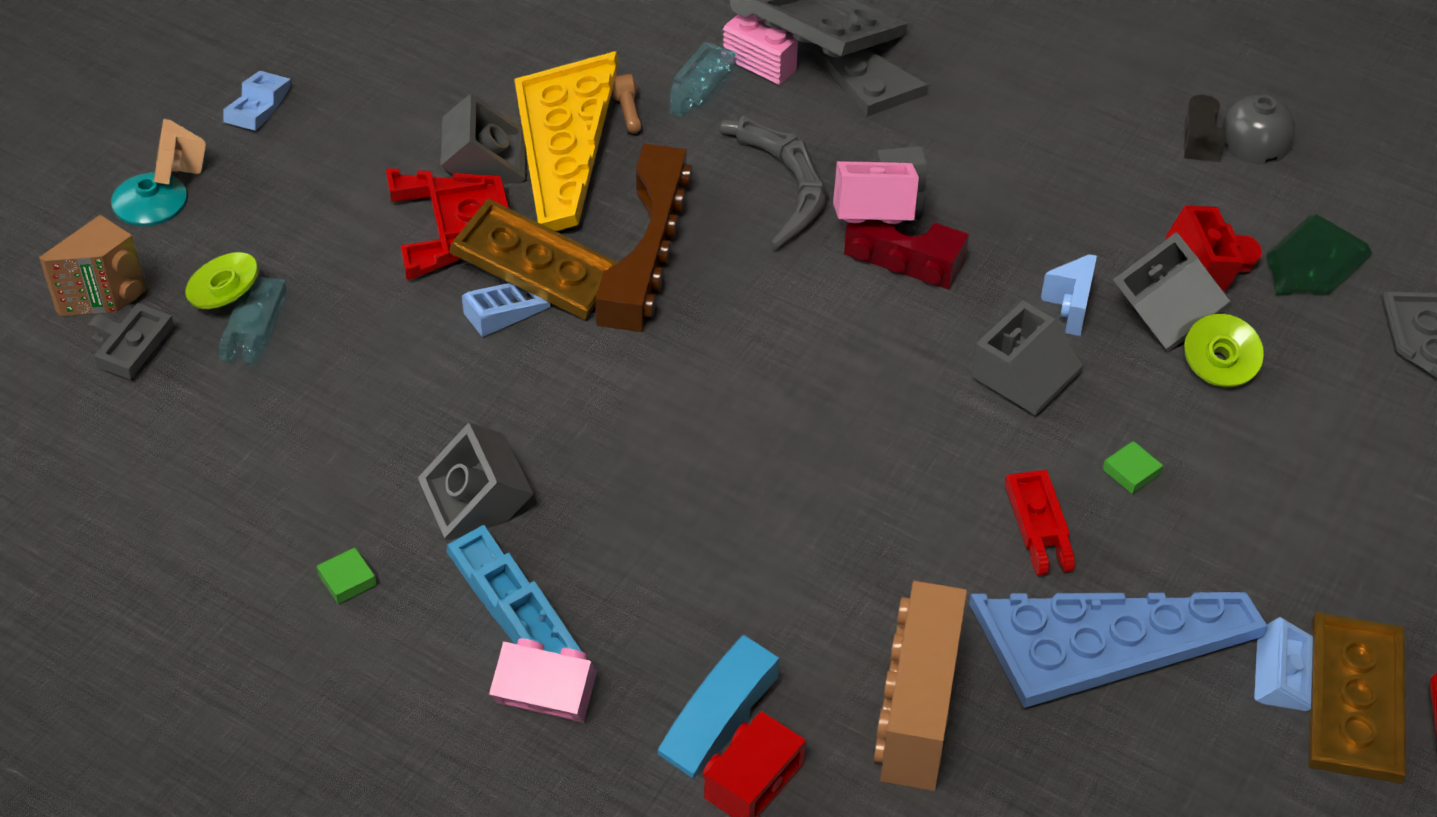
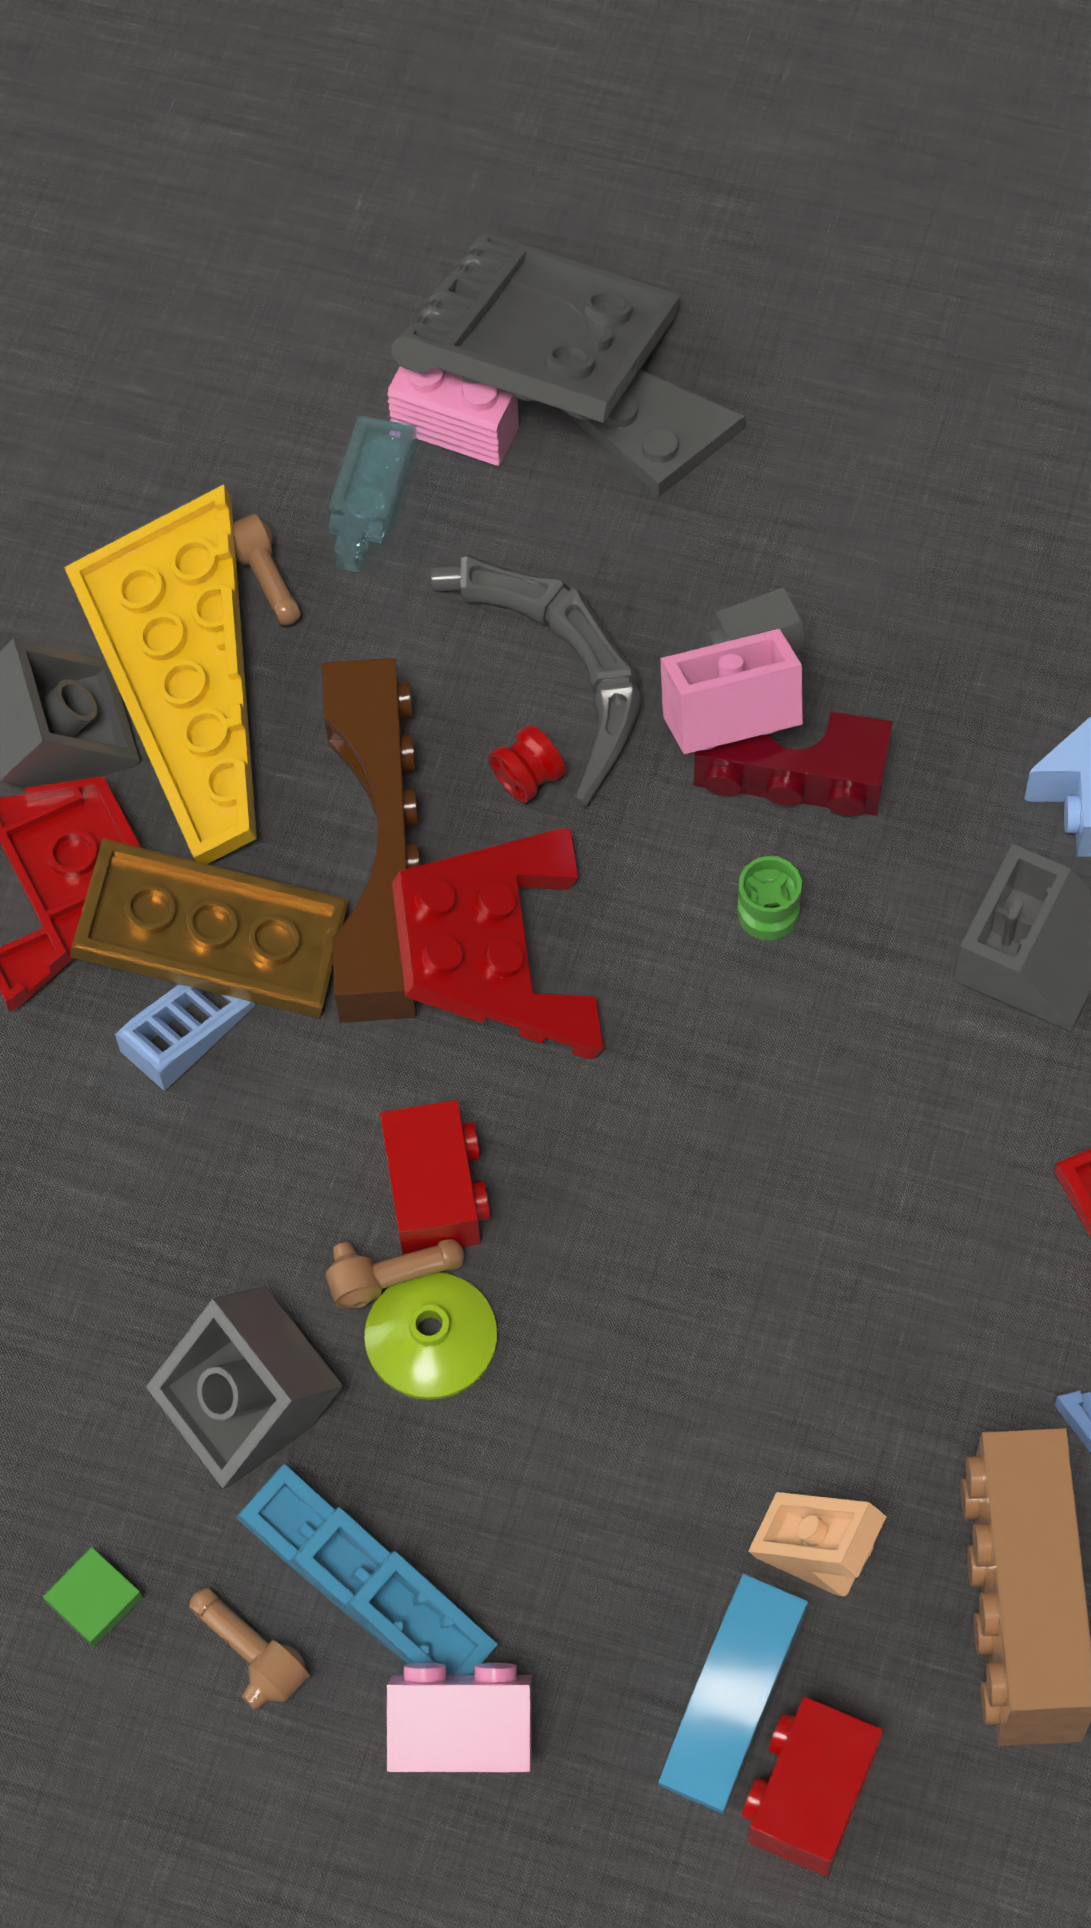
camera: 10 degrees left, 15 degrees up
(440, 633) = (273, 1668): none -> medium nougat piece
(561, 448) = (358, 1281): none -> medium nougat piece
(596, 489) = (437, 1363): none -> lime dish
(622, 405) = (432, 1177): none -> red brick
(683, 289) = (468, 942): none -> red wing
(747, 218) = (526, 763): none -> red wheel
(801, 639) = (818, 1538): none -> light nougat slope
(870, 310) = (769, 883): none -> bright green wheel

